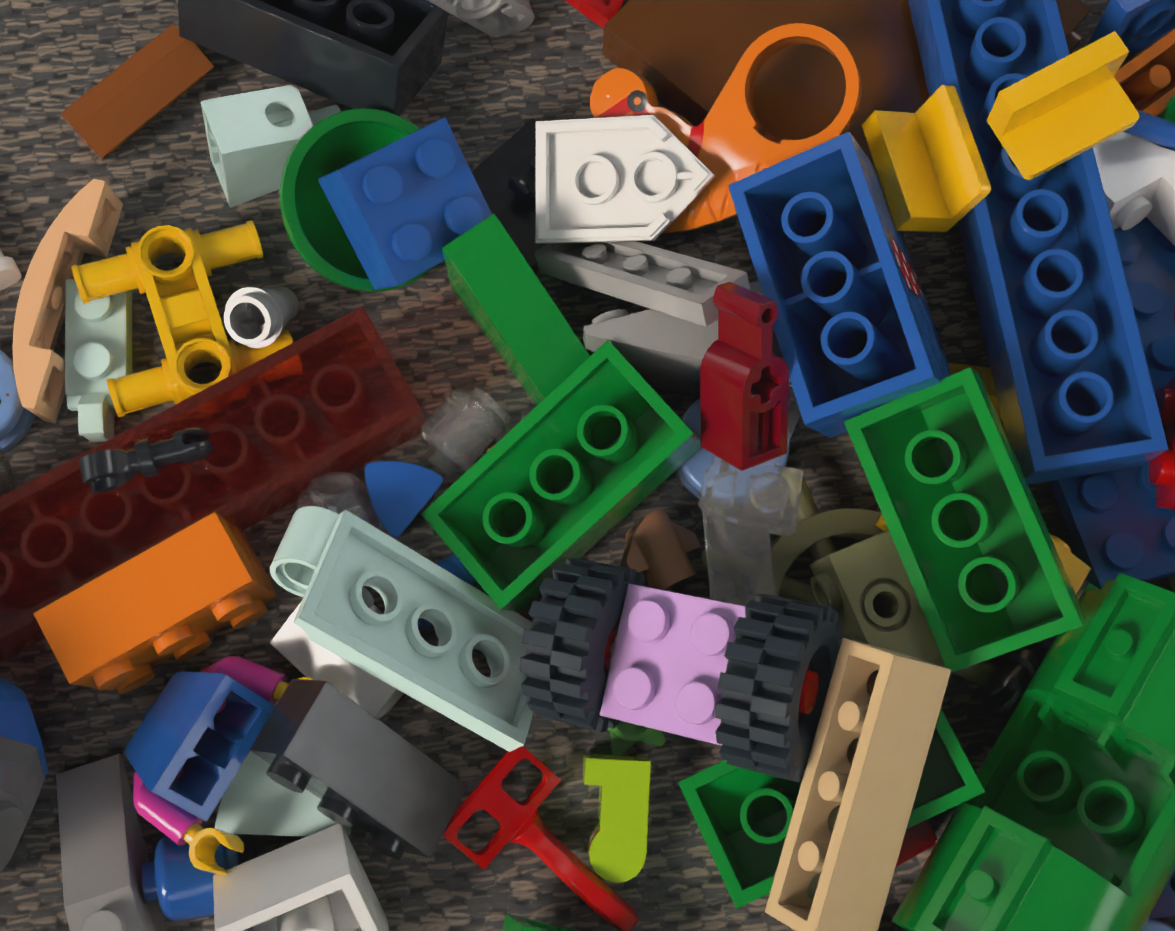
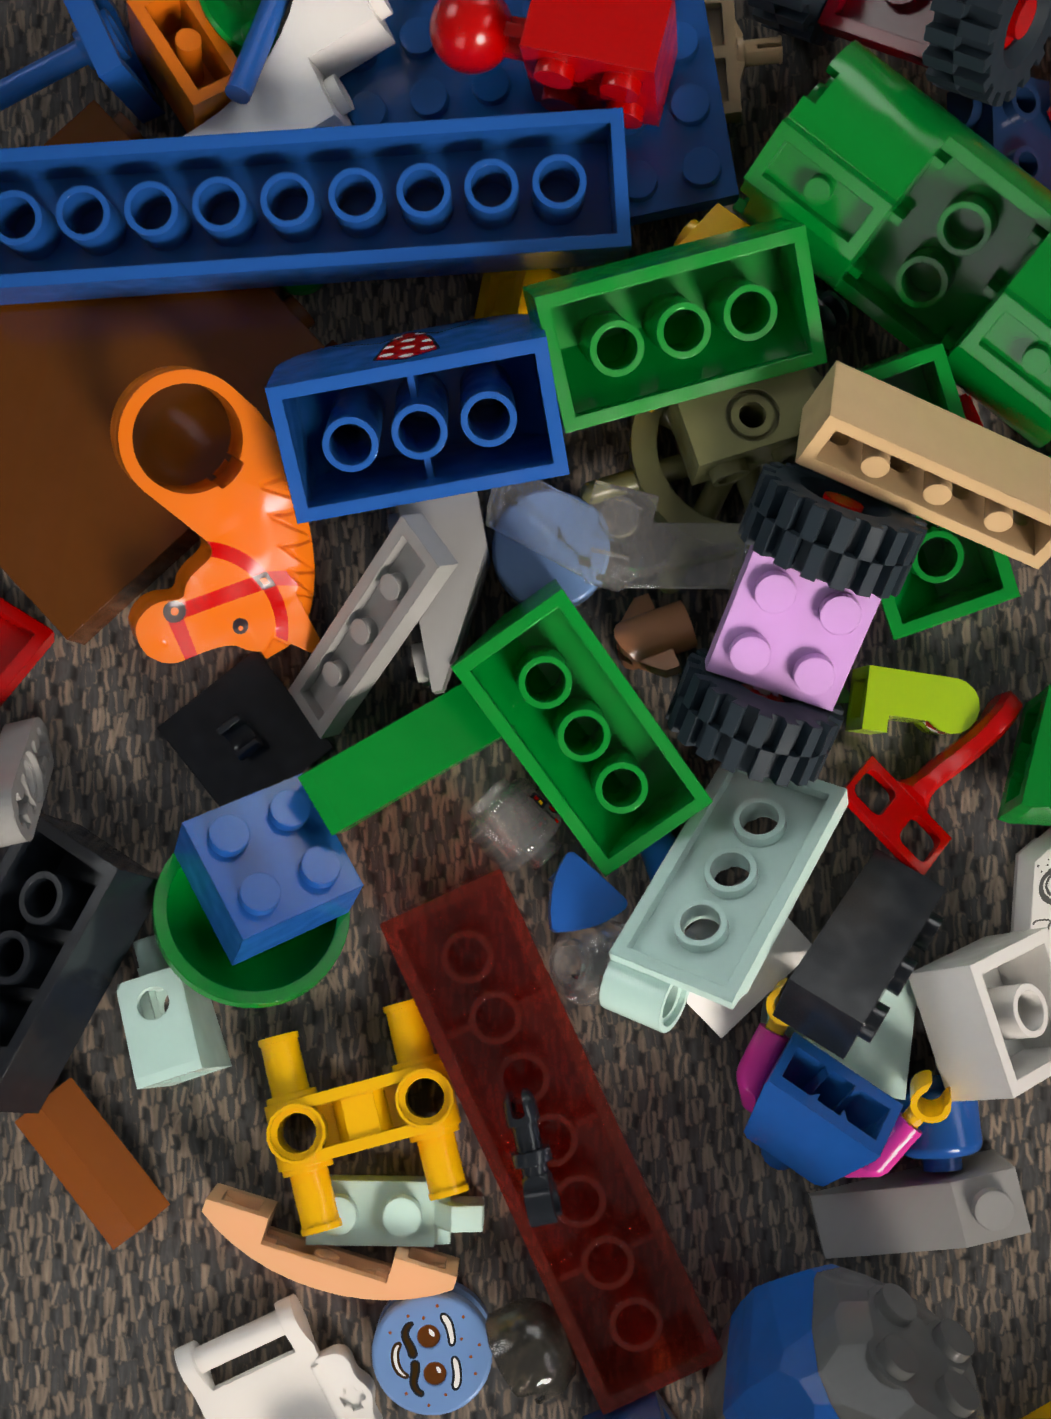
camera: 80 degrees left, 10 degrees up
(157, 607) = (681, 1149): orange brick -> none
(259, 314) = (371, 1035): light grey cone -> none
(611, 179) = (258, 648): white tile -> none
(743, 382) = (517, 533): dark red piece -> none
(927, 163) = (280, 308): yellow panel -> none
(1064, 108) = (248, 152): yellow panel -> none

